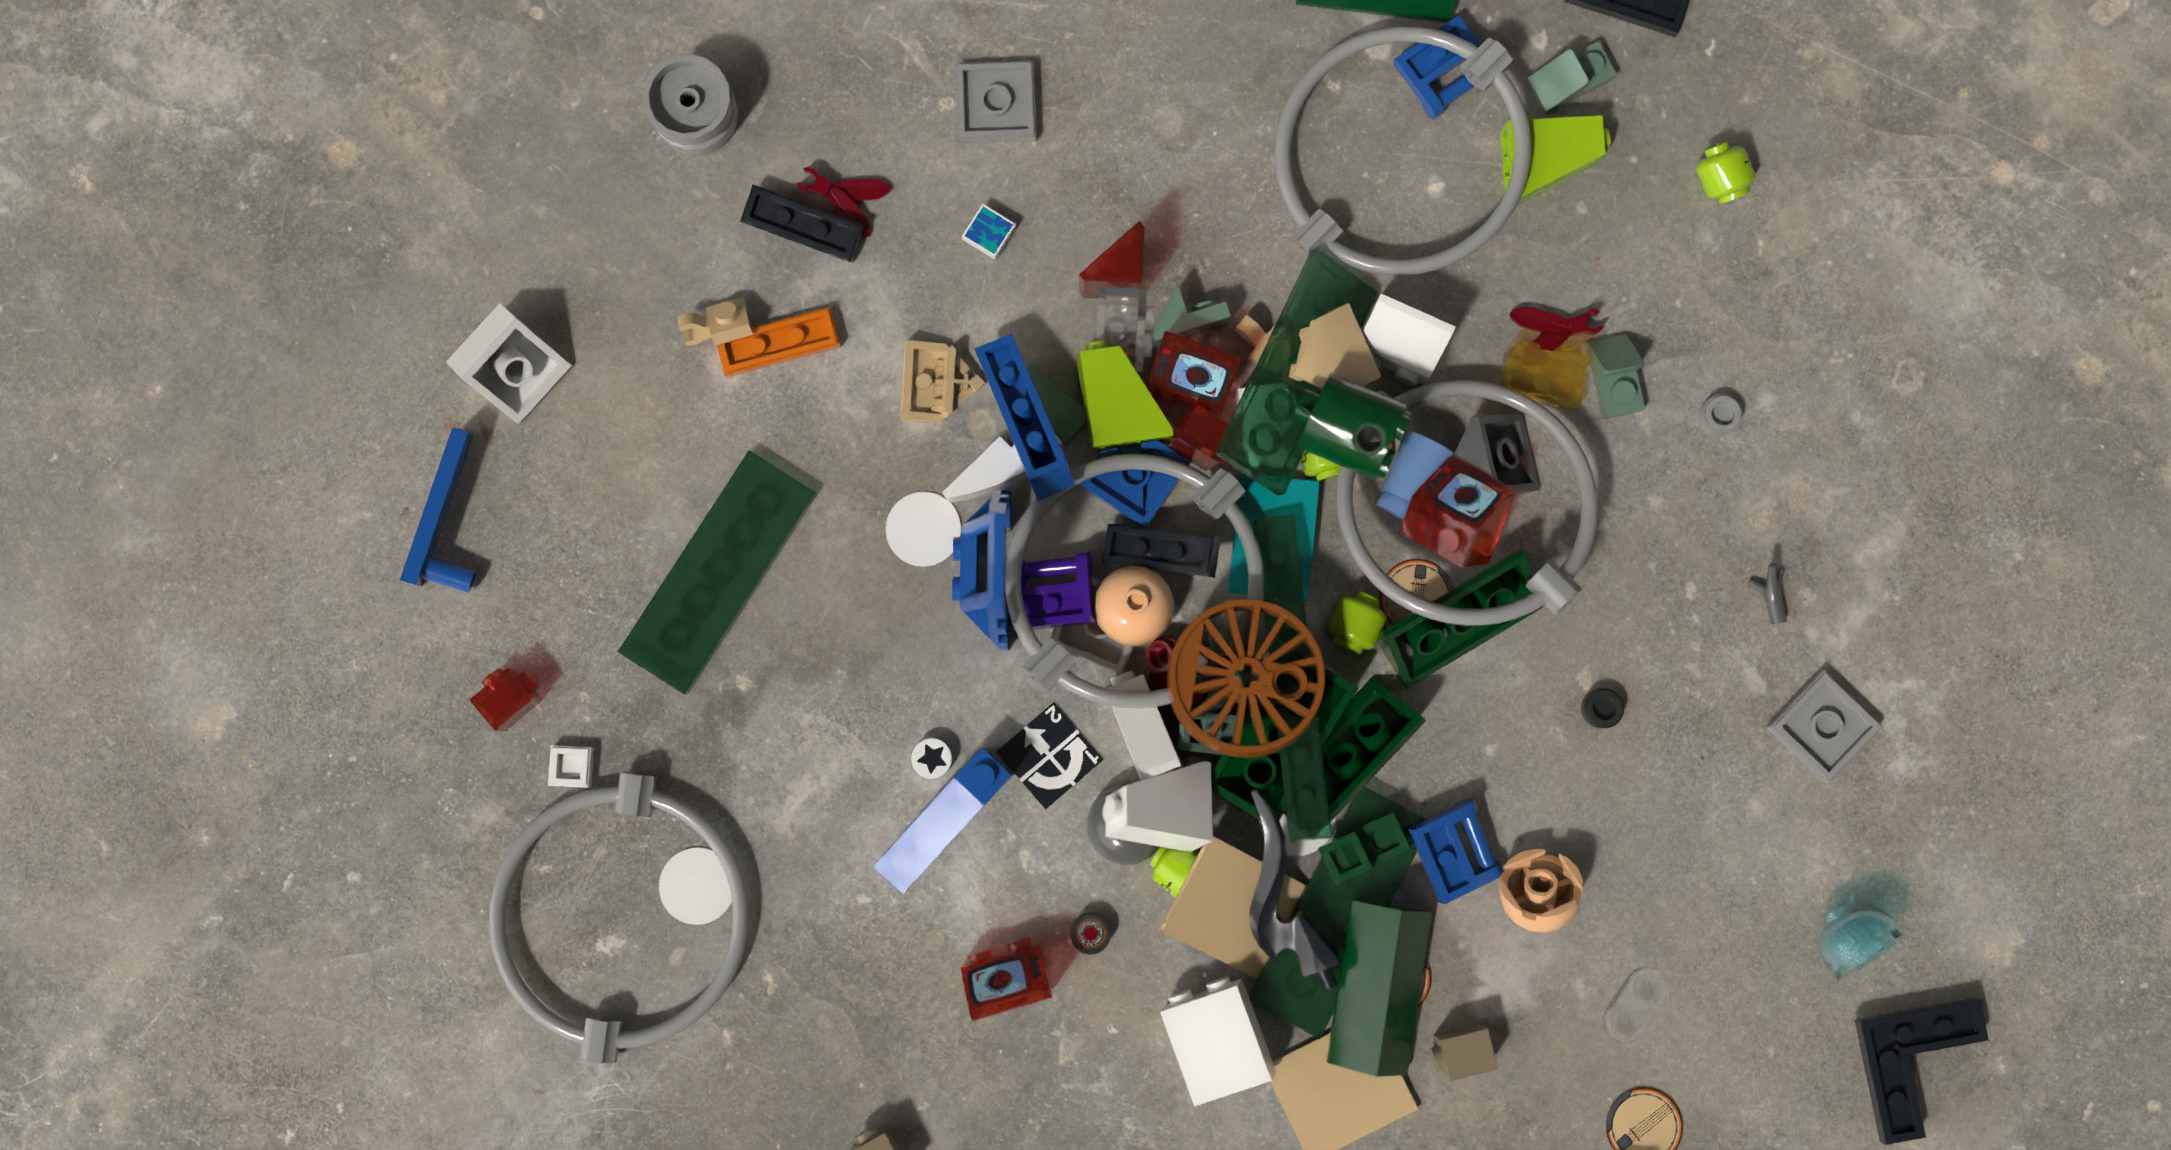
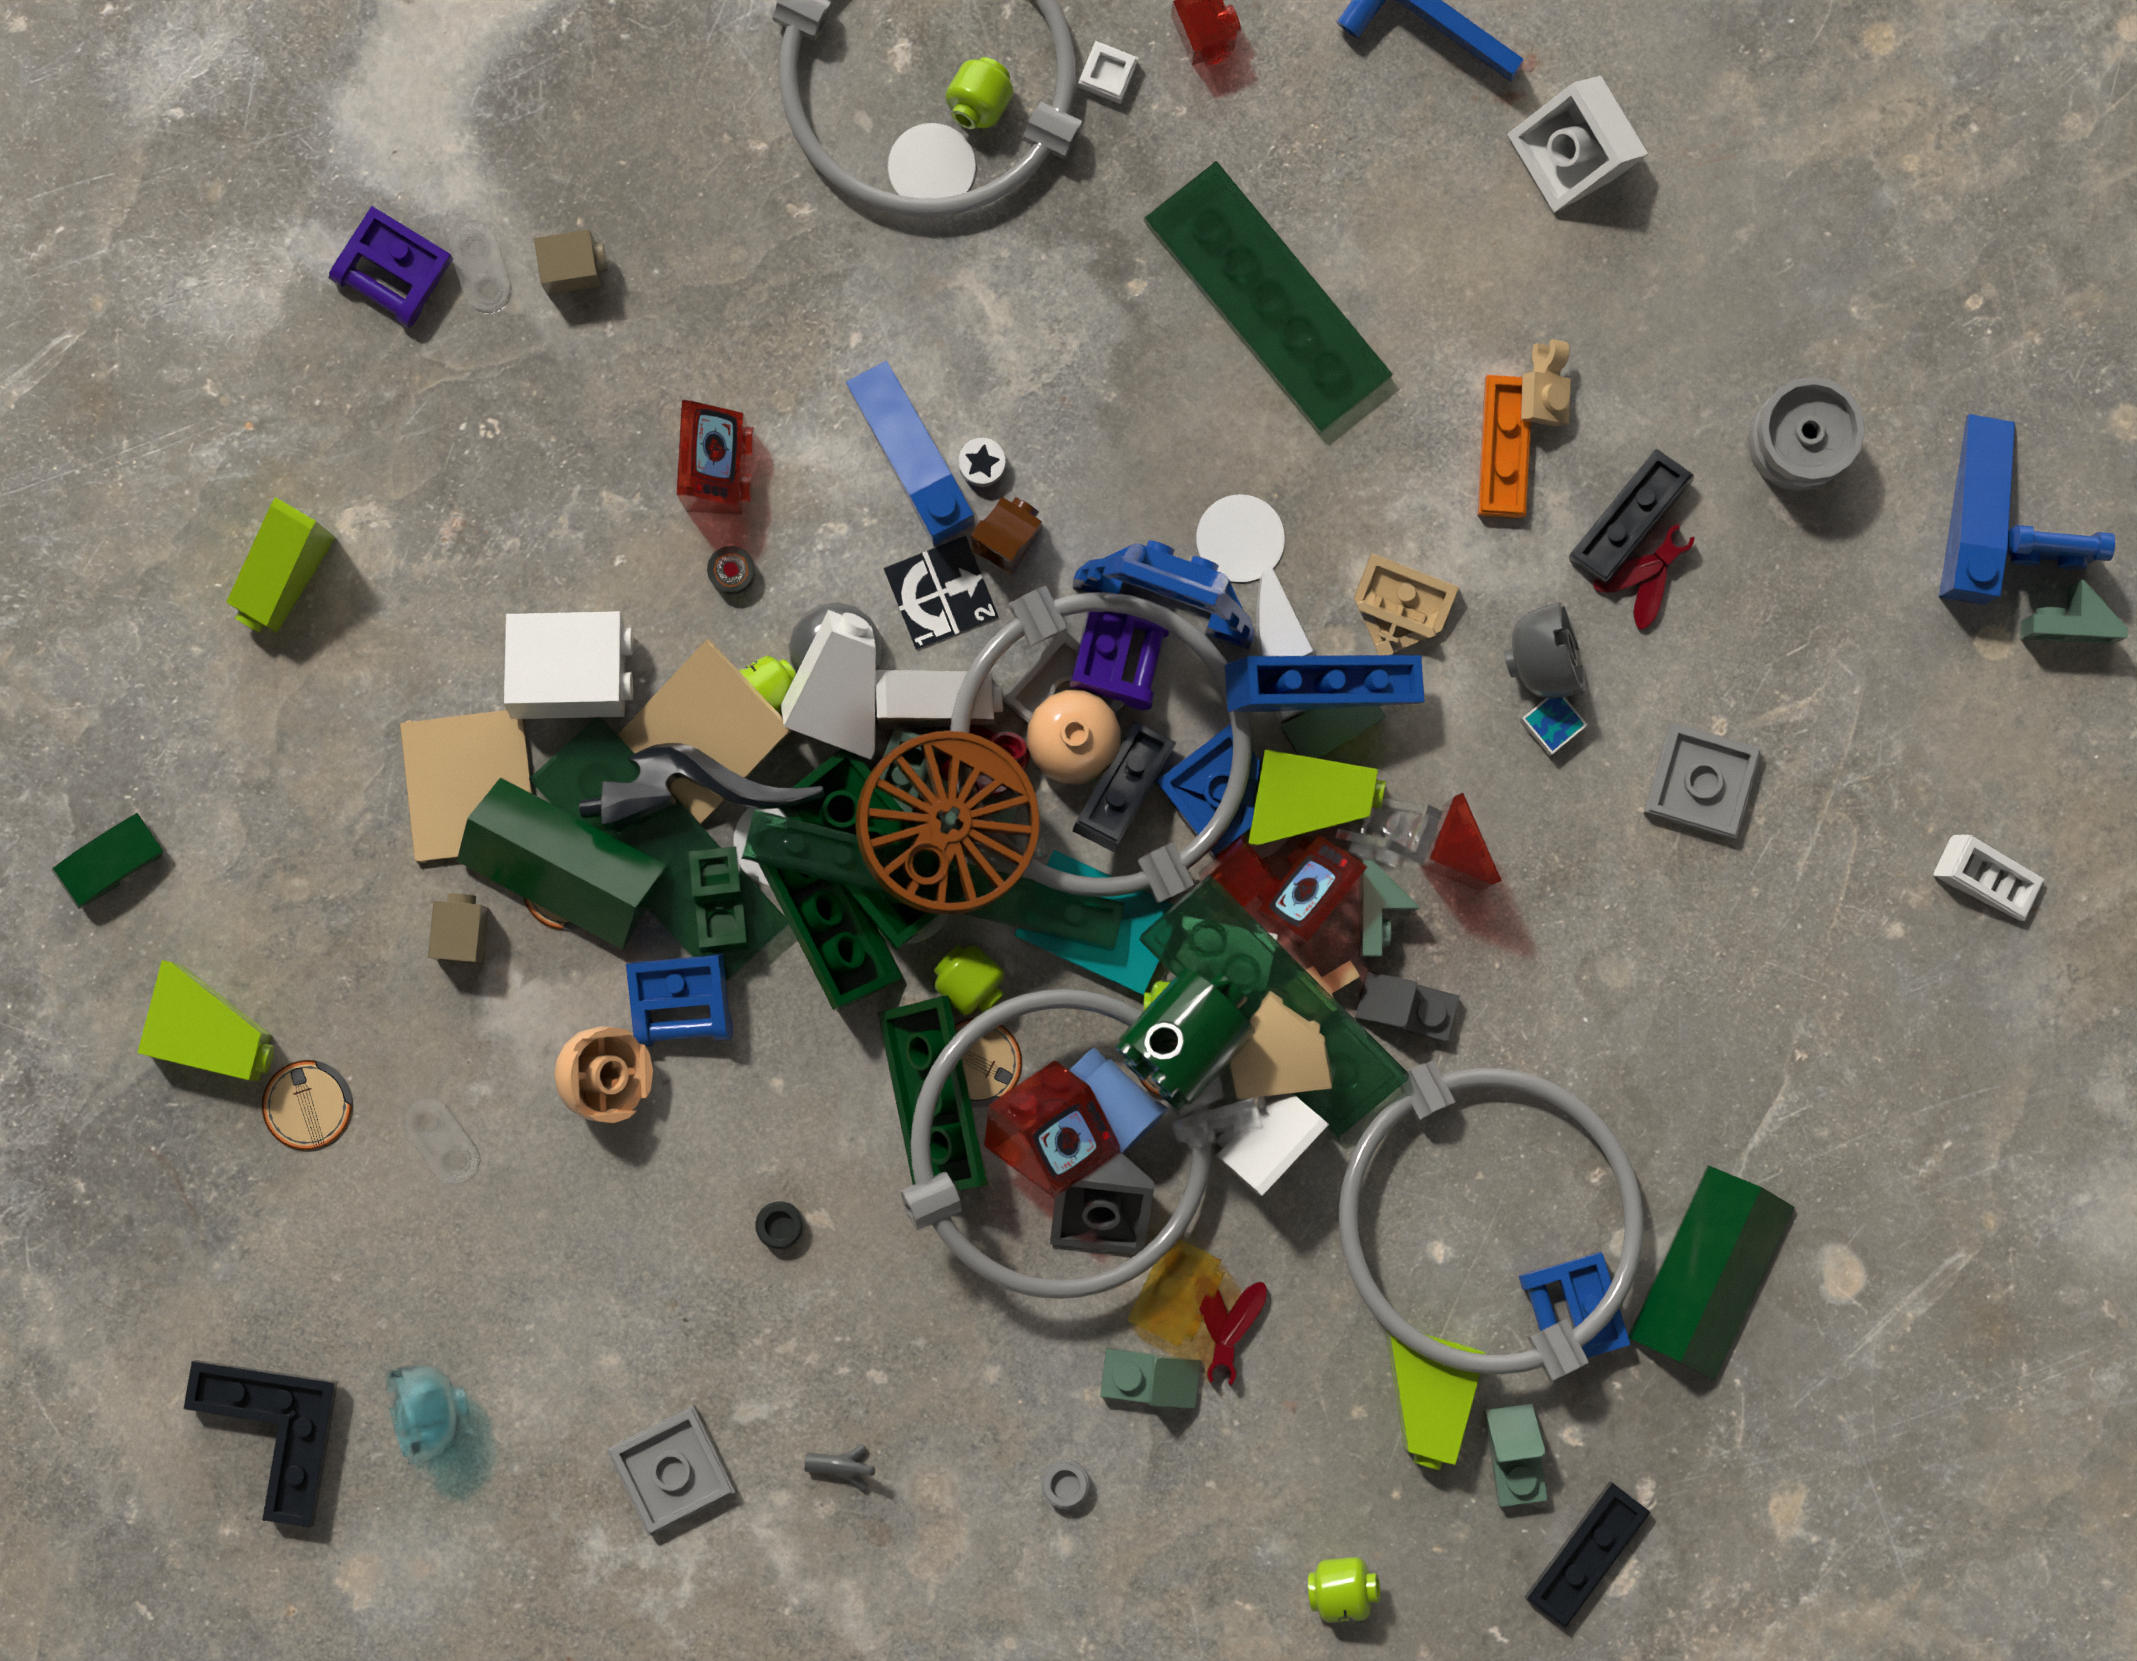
camera: 105 degrees right, 0 degrees up
(624, 866) = (979, 93): none -> lime head
(938, 252) = (1546, 653): none -> dark grey cylinder
(985, 715) = (1007, 534): none -> reddish brown arch
(1255, 273) = (1407, 1006): none -> dark grey slope
(1415, 394) = (1241, 1116): none -> clear plate

